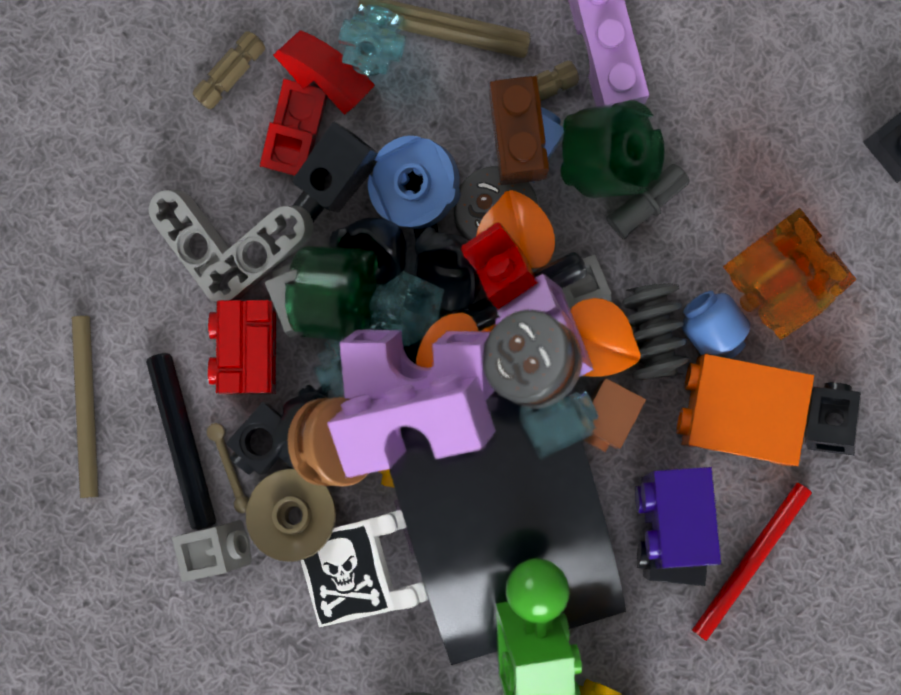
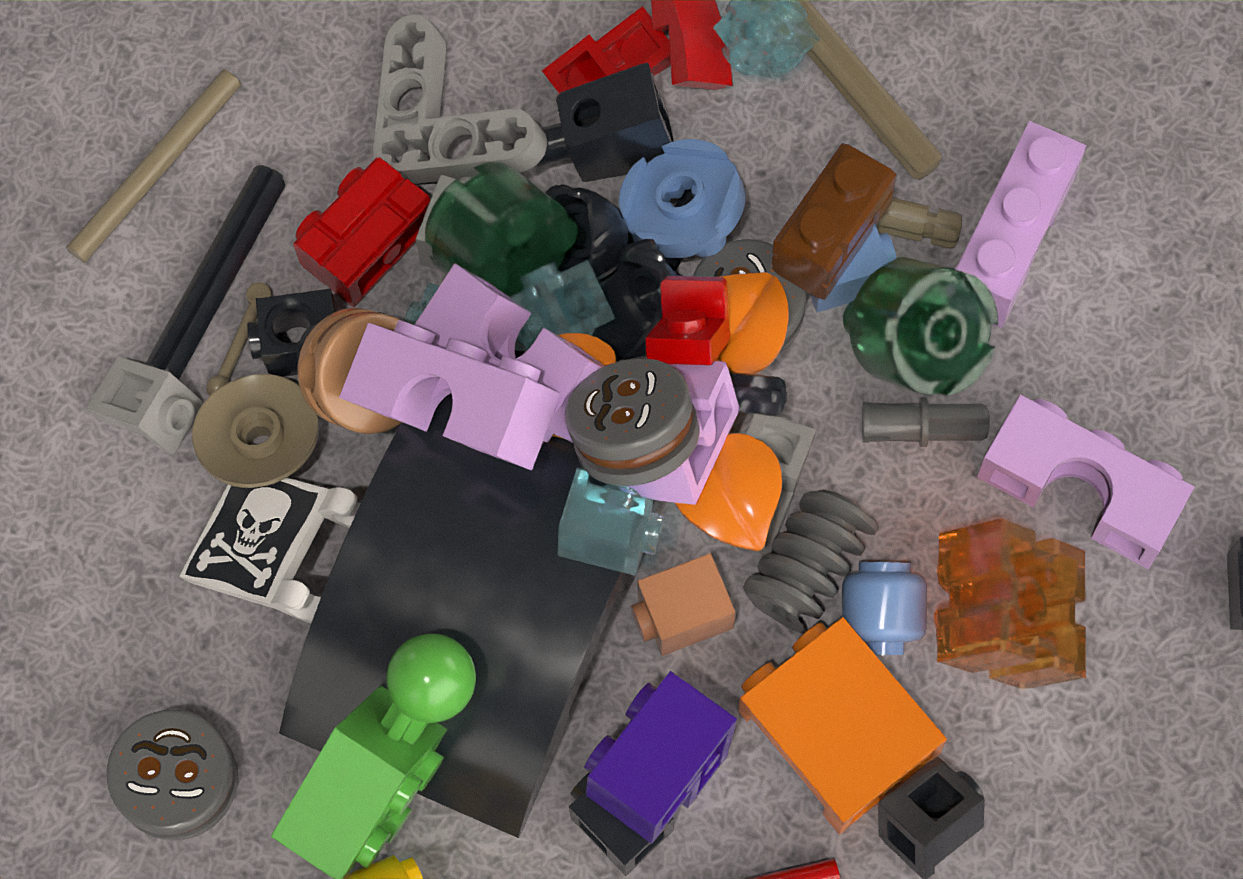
camera: 45 degrees right, 15 degrees down
(801, 153) = (1137, 496): none -> lavender arch

